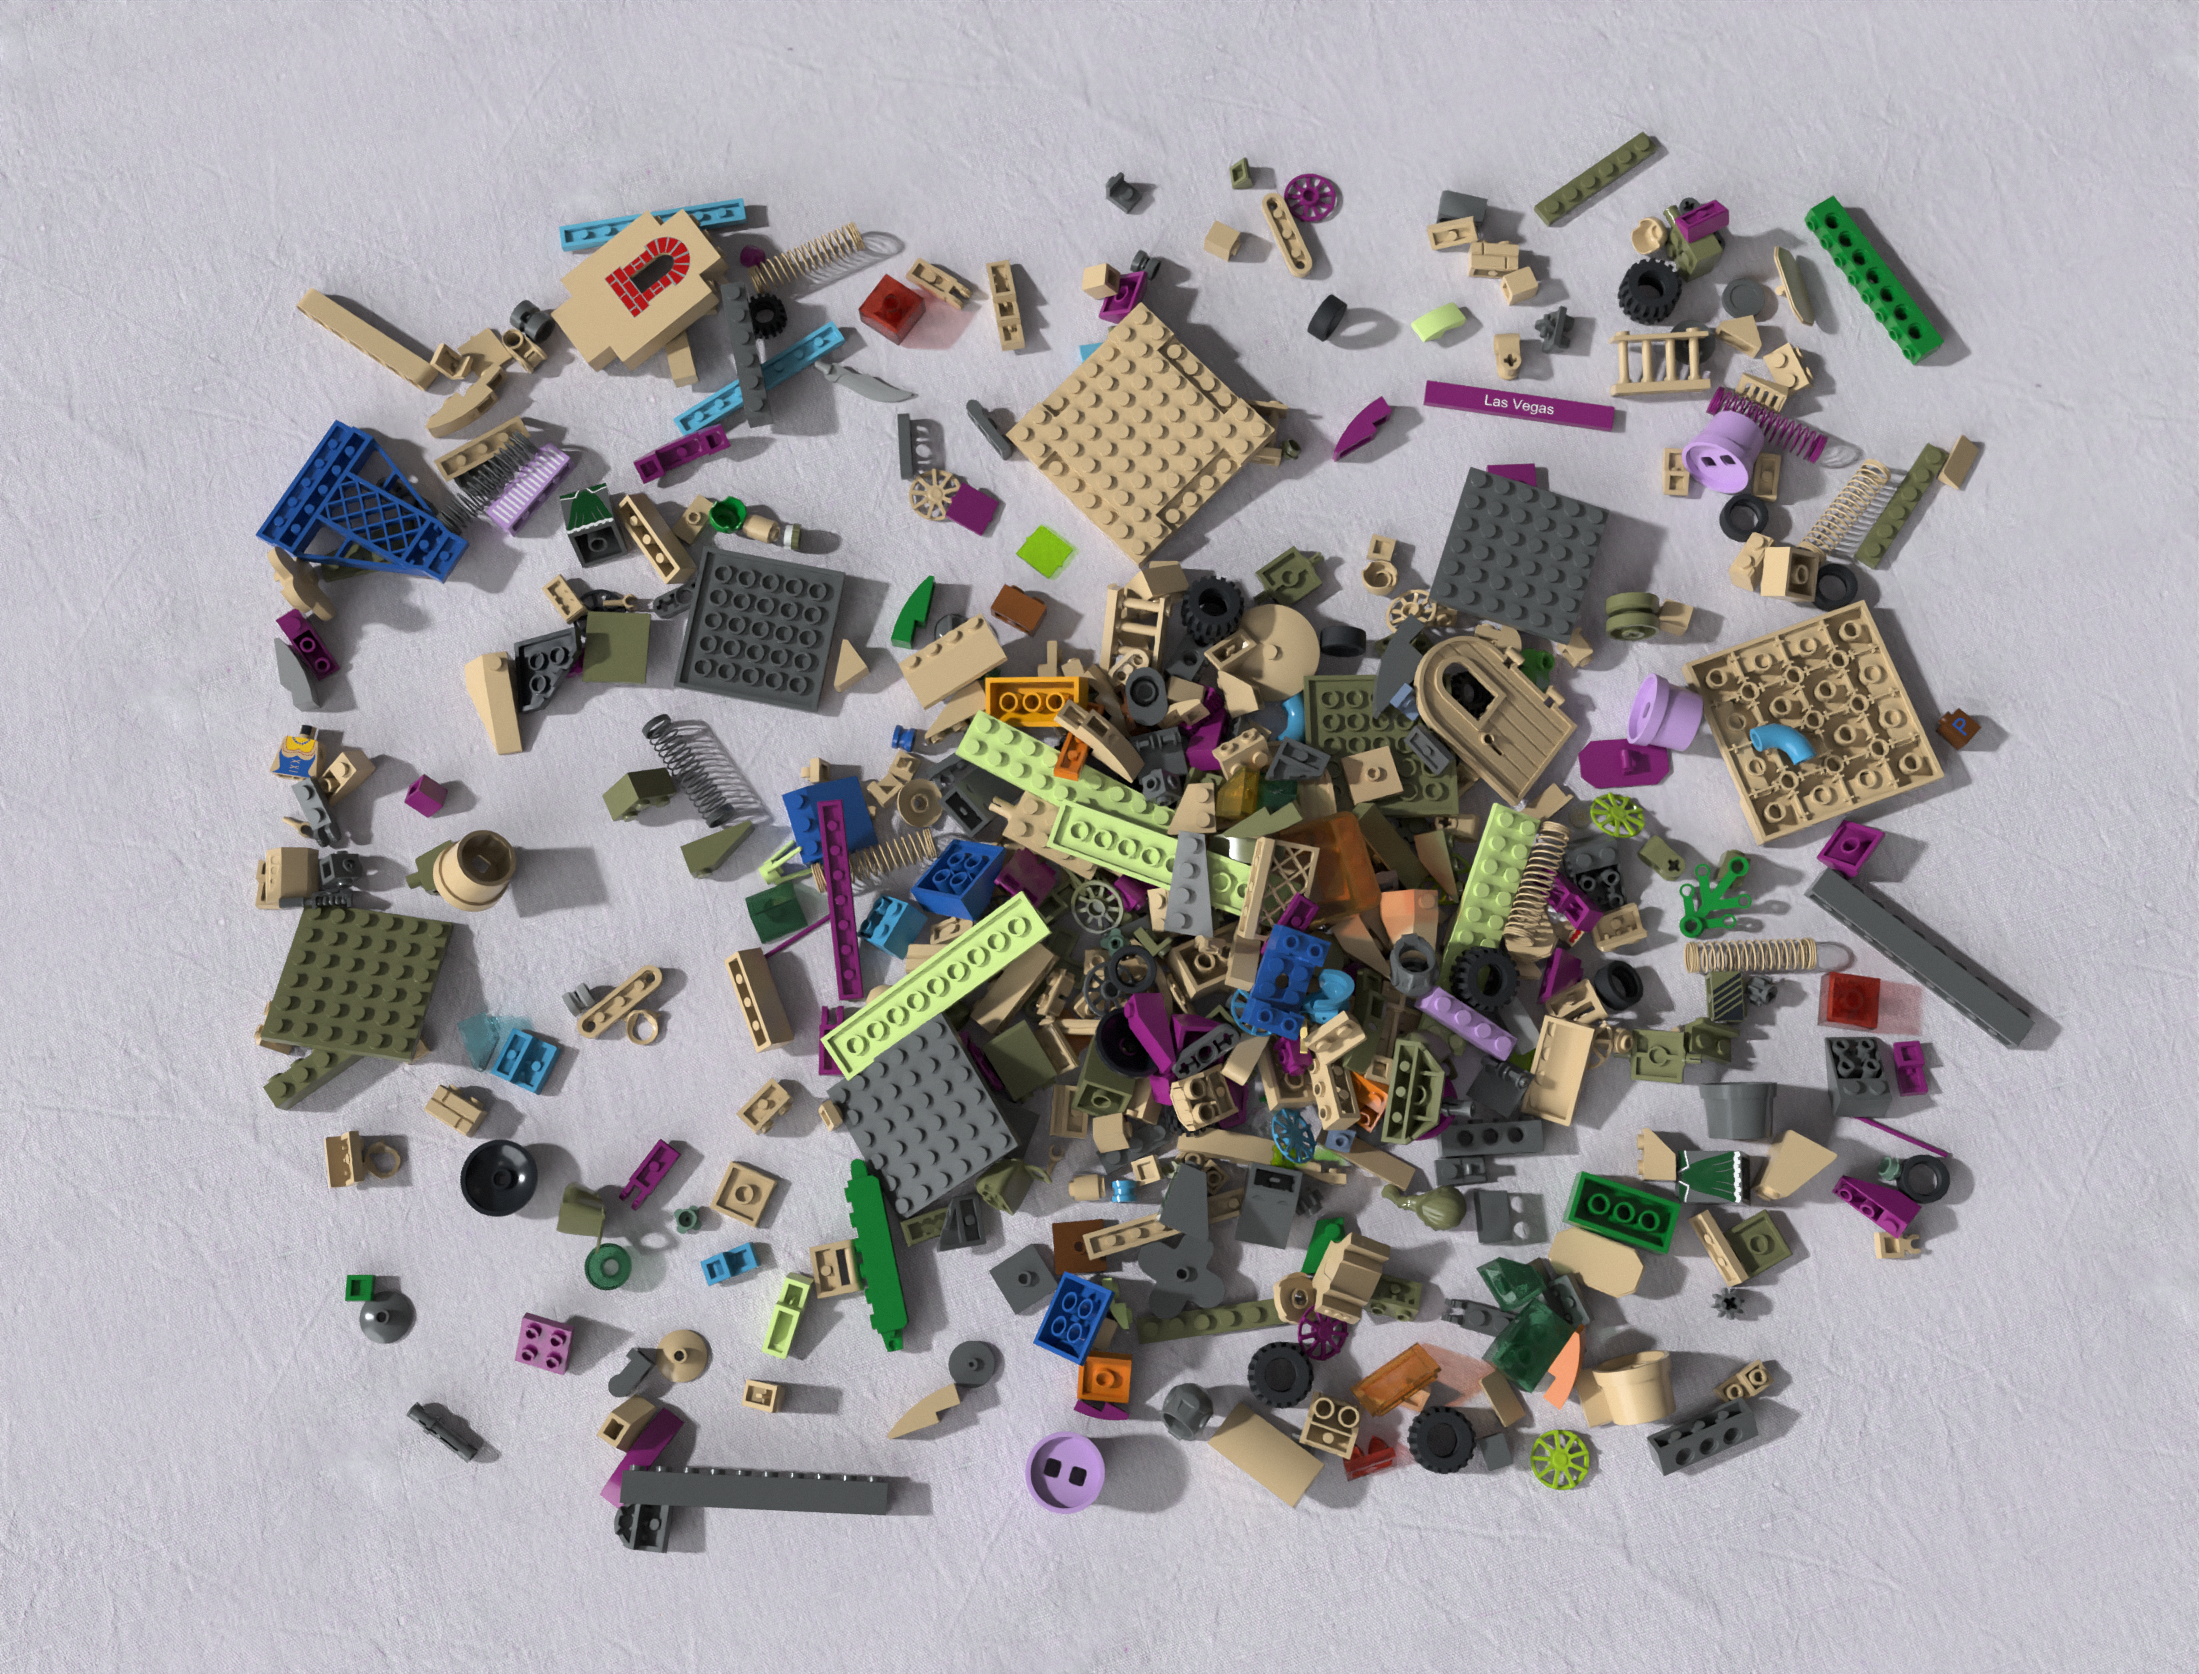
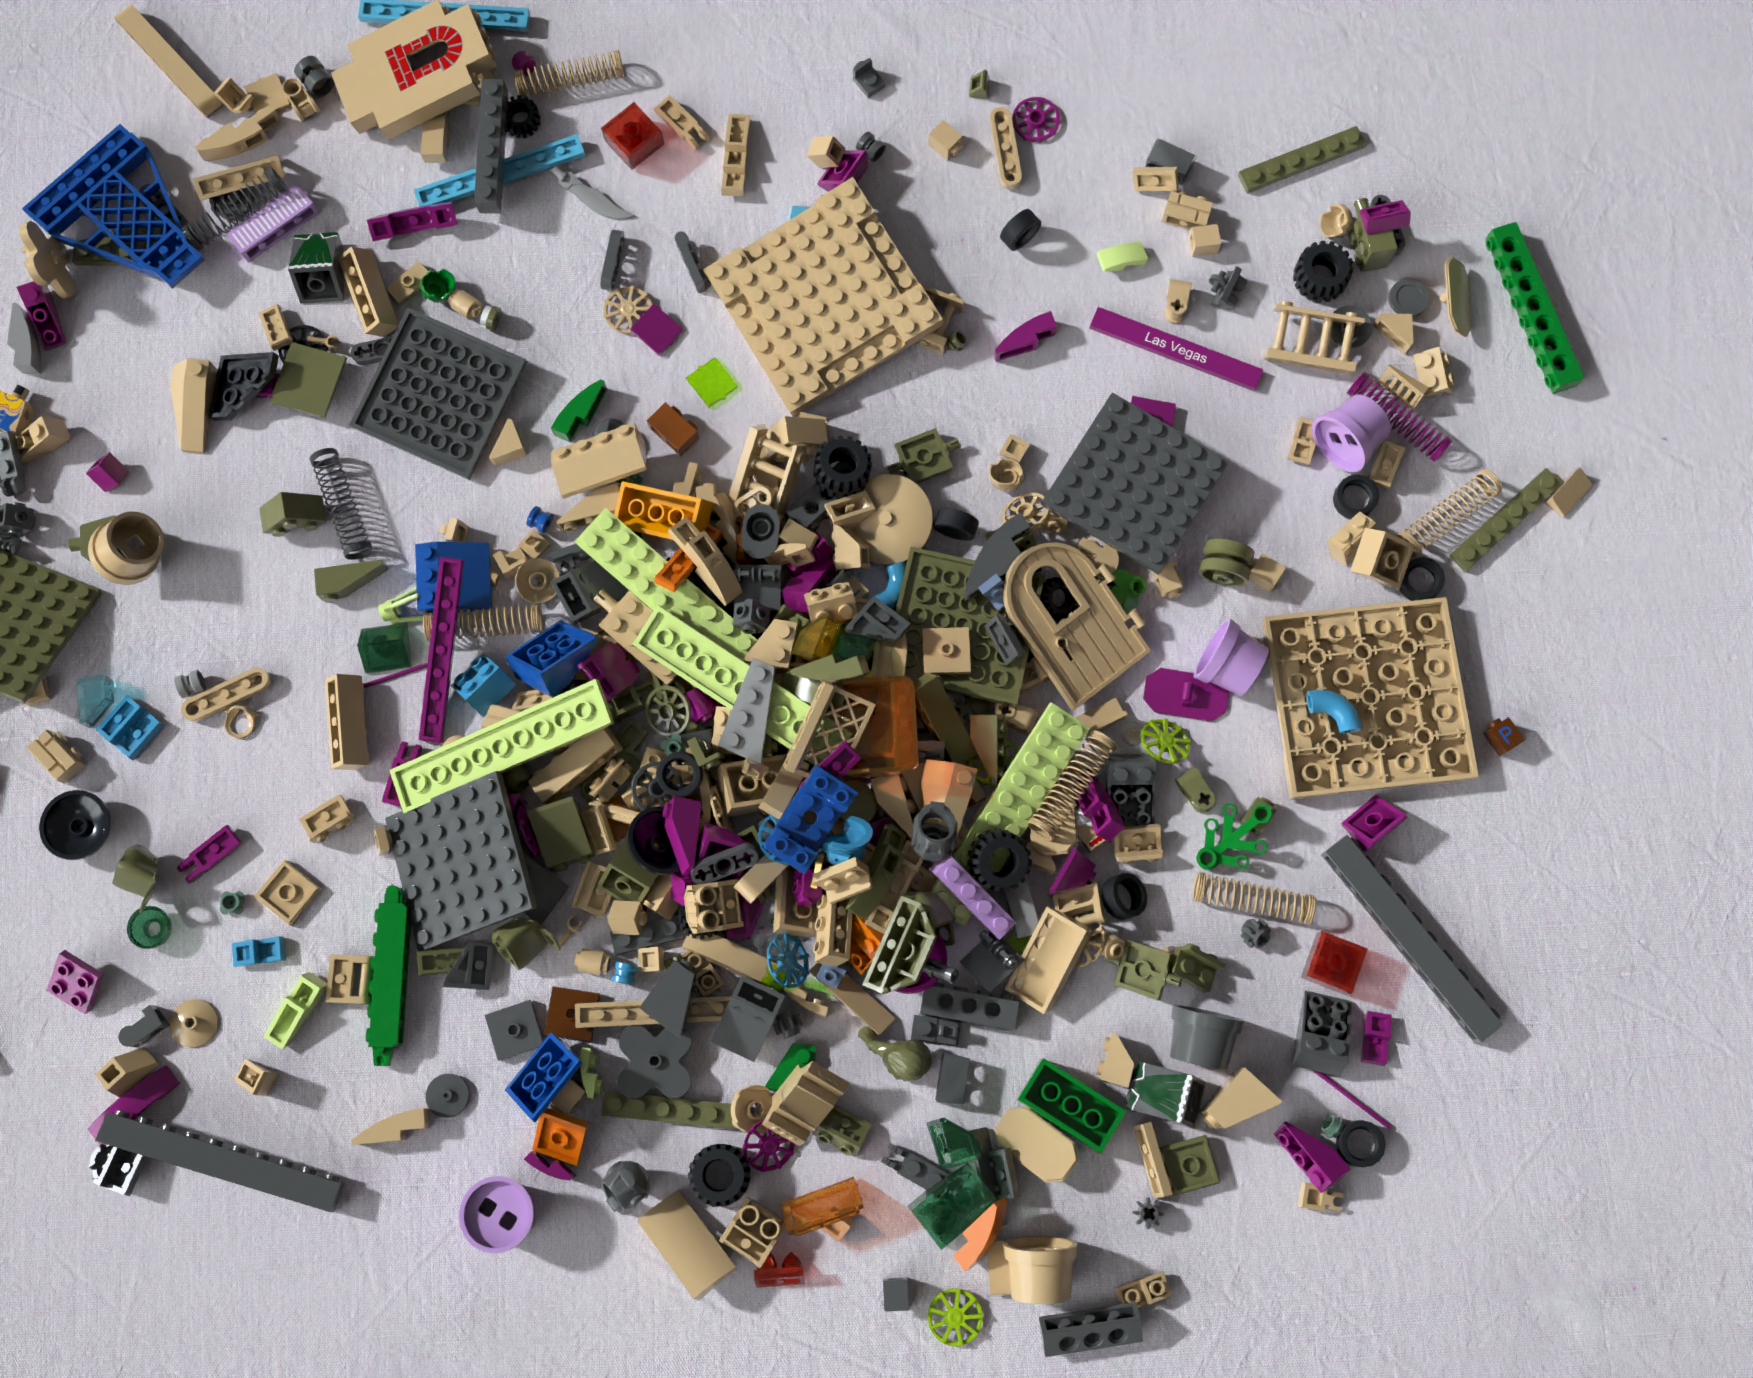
camera: 15 degrees right, 0 degrees up
(1464, 1440) = (828, 1277): black tyre -> none
(1501, 1398) = (917, 1247): tan slope -> none
(1725, 997) = (1221, 931): brick -> none

